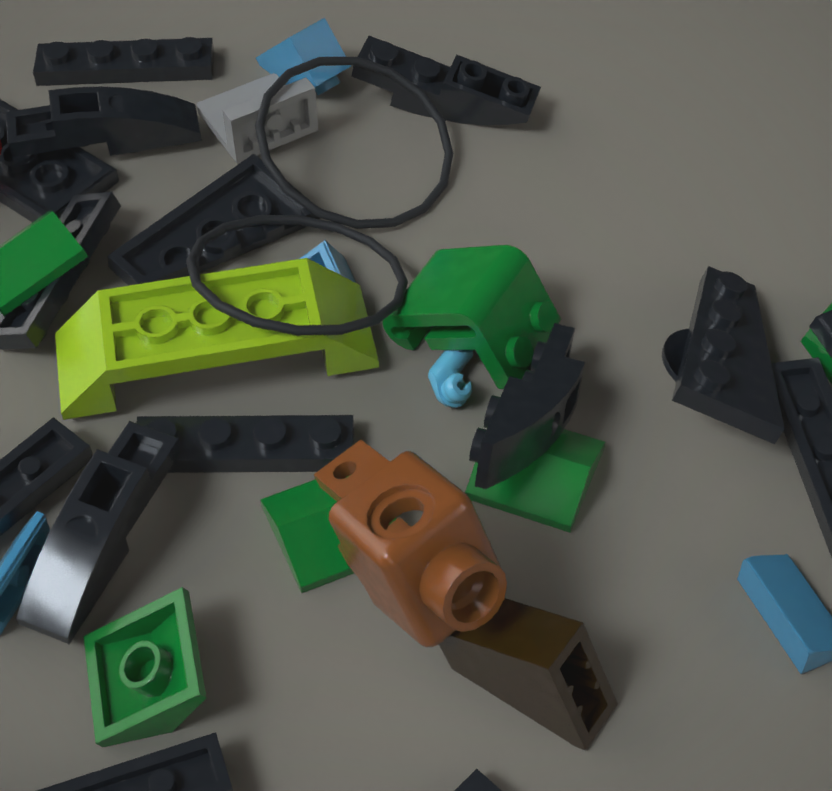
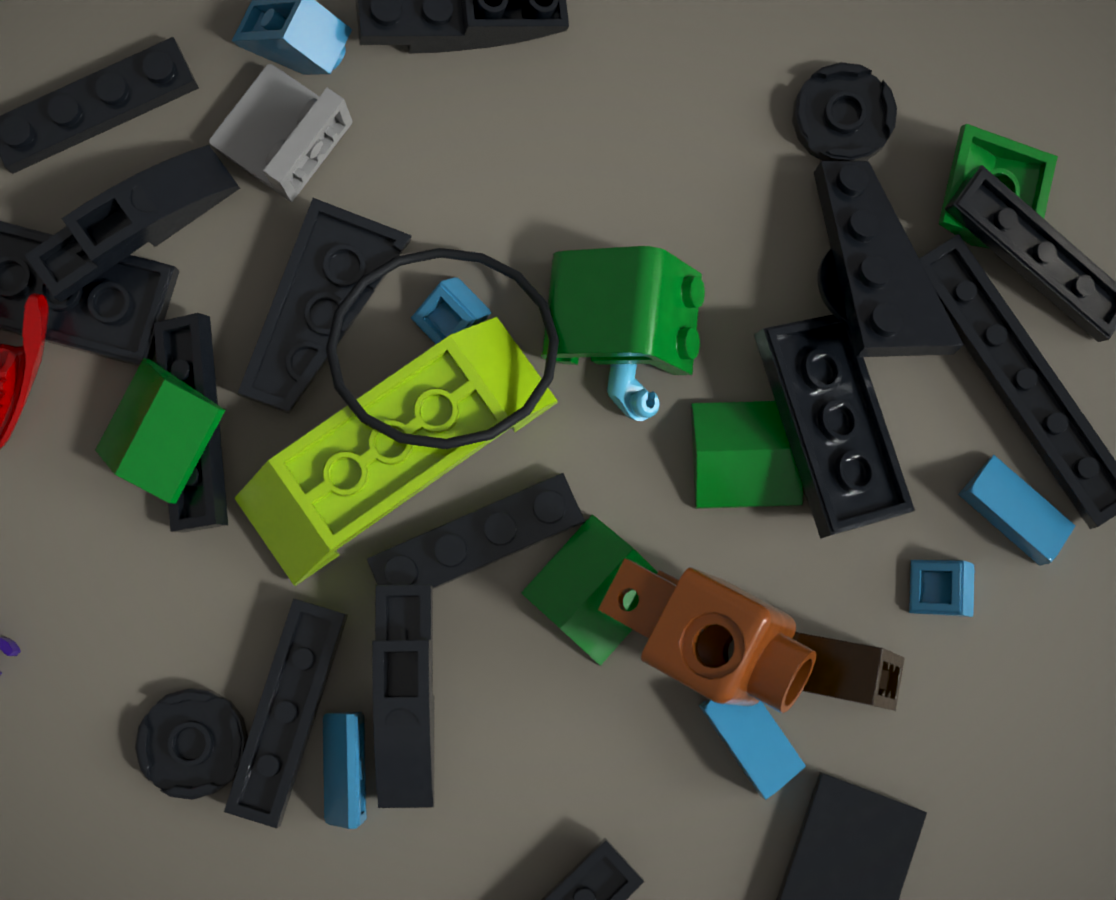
camera: 25 degrees left, 30 degrees up
(144, 671) = (514, 806): green slope -> none
(307, 204) = (310, 164): black piece -> none
(419, 709) = (755, 744): none -> dark azure slope
(529, 411) = (736, 412): black slope -> none
(630, 467) = (833, 425): none -> black tile
(687, 652) = (942, 588): none -> dark azure slope
(750, 247) = (844, 113): none -> black tile

